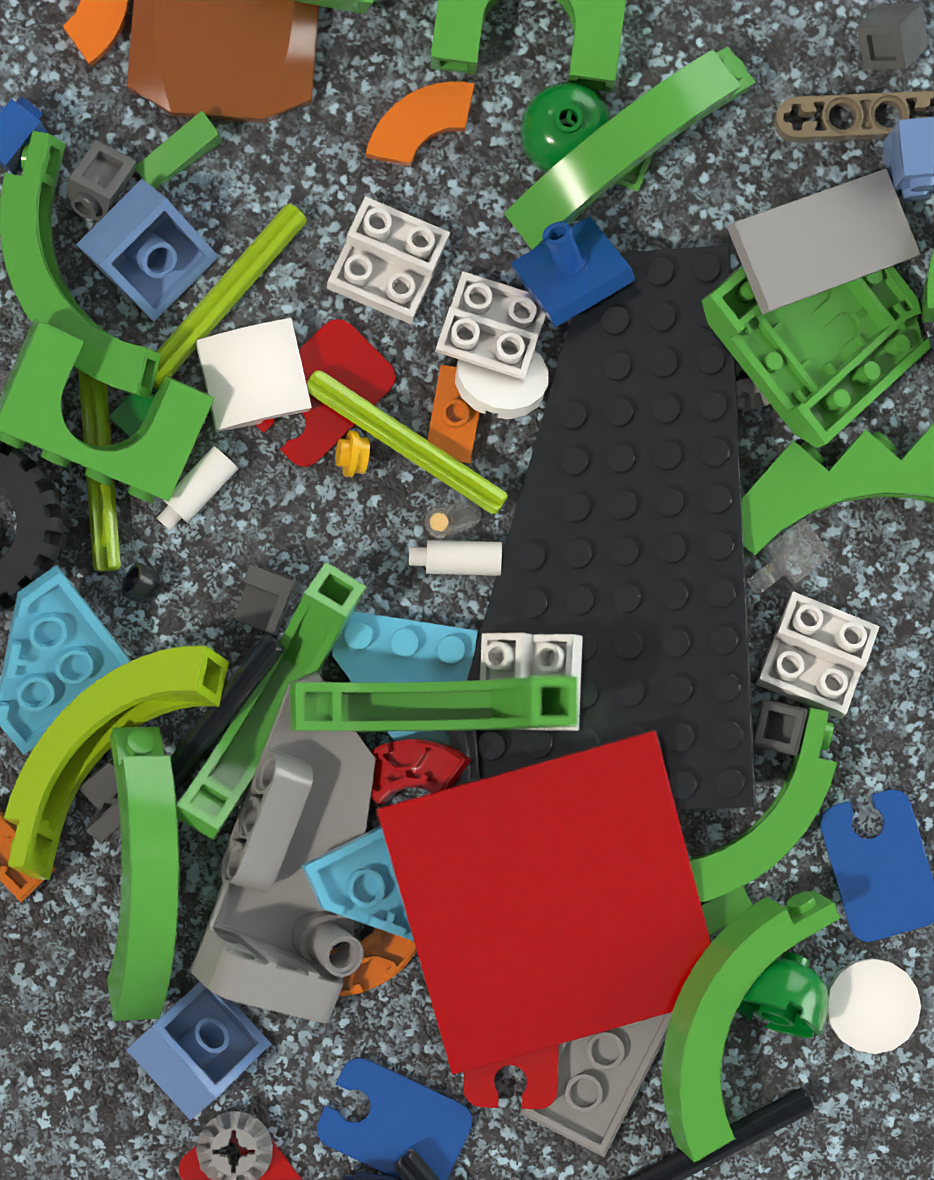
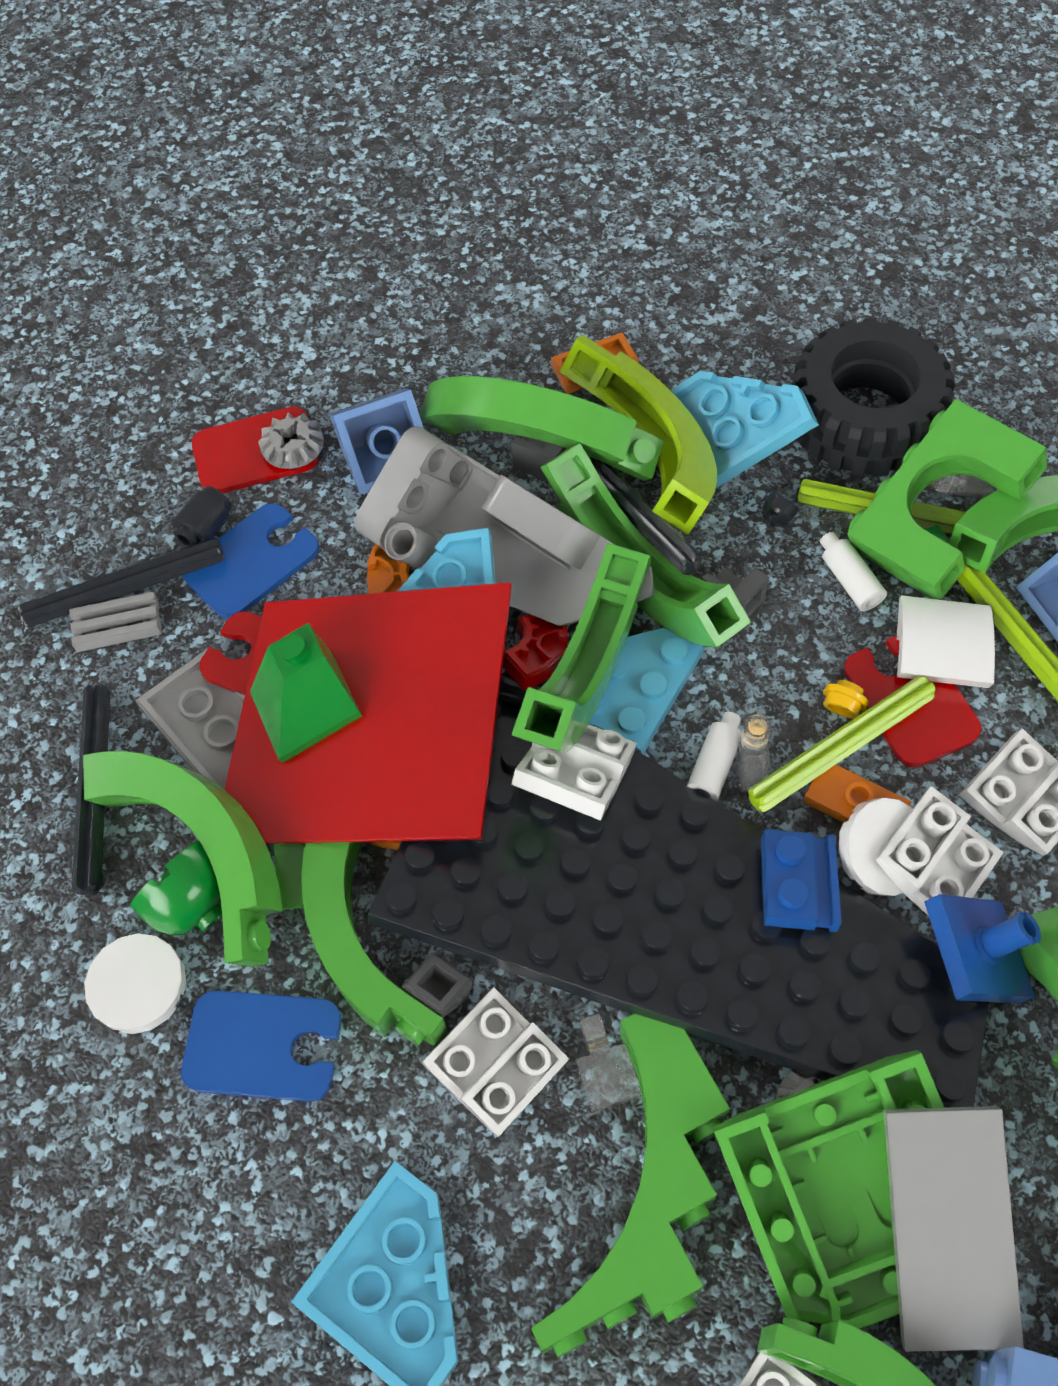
camera: 125 degrees right, 25 degrees down
(558, 972) = (301, 693): none -> green slope
(567, 441) = (800, 880): none -> blue plate

